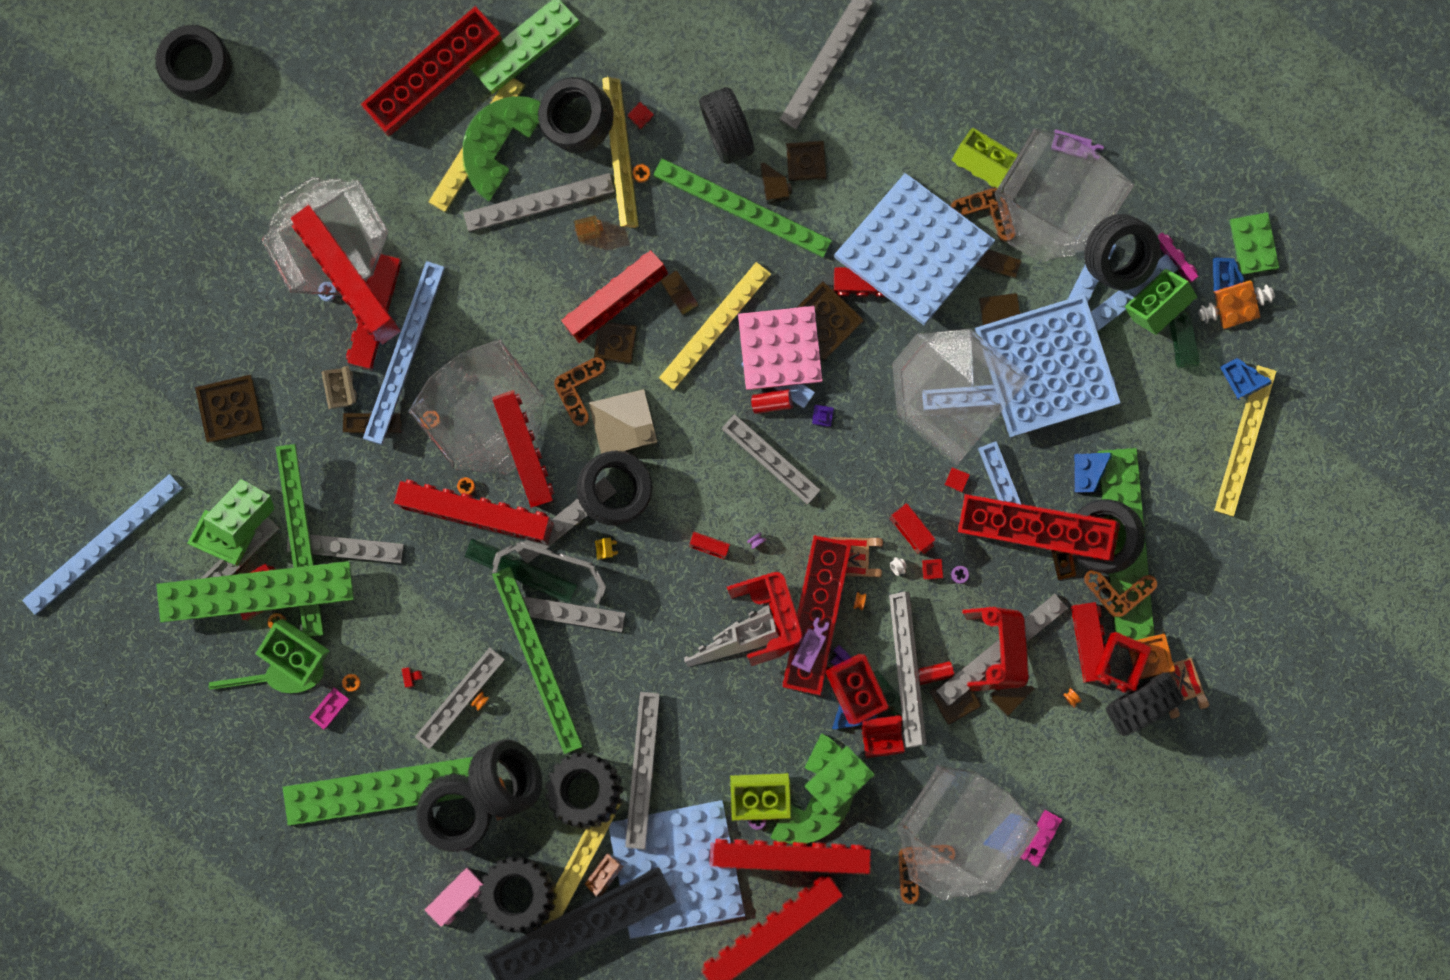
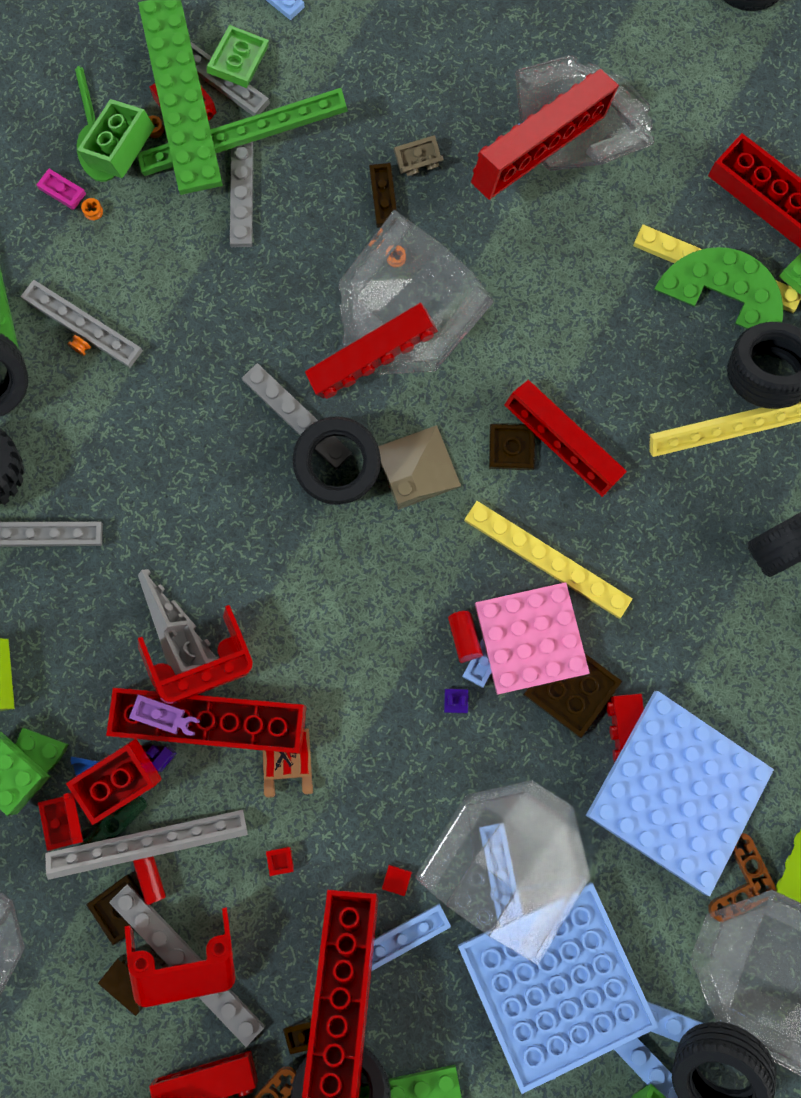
camera: 80 degrees right, 5 degrees down
(229, 408) = (381, 51): dark brown plate -> none
(238, 513) = (263, 63): bright green brick -> none
(382, 284) = (534, 187): red brick -> none
(404, 353) = (466, 216): light blue plate -> none
(409, 677) = (100, 267): red tile -> none
(469, 481) = (327, 296): orange bush -> none
(474, 512) = (291, 308): red brick -> none
(522, 571) = (232, 372): clear green tile -> none
(537, 660) = (128, 400): bright green plate -> none
(538, 202) = (662, 344): light grey plate -> none
(570, 389) = (448, 404): dark orange beam -> none
(575, 614) = (188, 430): light grey plate -> none
(588, 228) = (640, 399): clear orange brick -> none
(601, 587) = (248, 412): light grey windscreen -> none
(604, 548) = (266, 461): yellow tile -> none
(637, 177) = (719, 446): orange bush -> none
(640, 115) = (784, 444): red plate -> none
(679, 292) = (581, 511): dark brown slope -> none
(709, 545) = (283, 582): red brick -> none
(742, 208) = (694, 577): bright green plate -> none
(756, 540) = (294, 638): medium lavender bush -> none
(770, 459) = (394, 644): light grey plate -> none
(774, 184) = (730, 609): dark brown slope -> none
(806, 161) = (765, 645): dark brown tile -> none
(859, 601) = (231, 773): orange bush -> none
(898, 566) = (279, 817): white plate -> none
(912, 529) = (324, 831): red window -> none
(965, 572) = (281, 904): medium lavender bush -> none
(998, 307) = (622, 910): dark brown tile -> none
(999, 263) = (678, 905): dark brown plate -> none
(1072, 697) = (130, 1067): orange bush -> none
(1089, 471) = (427, 1058): blue wing -> none

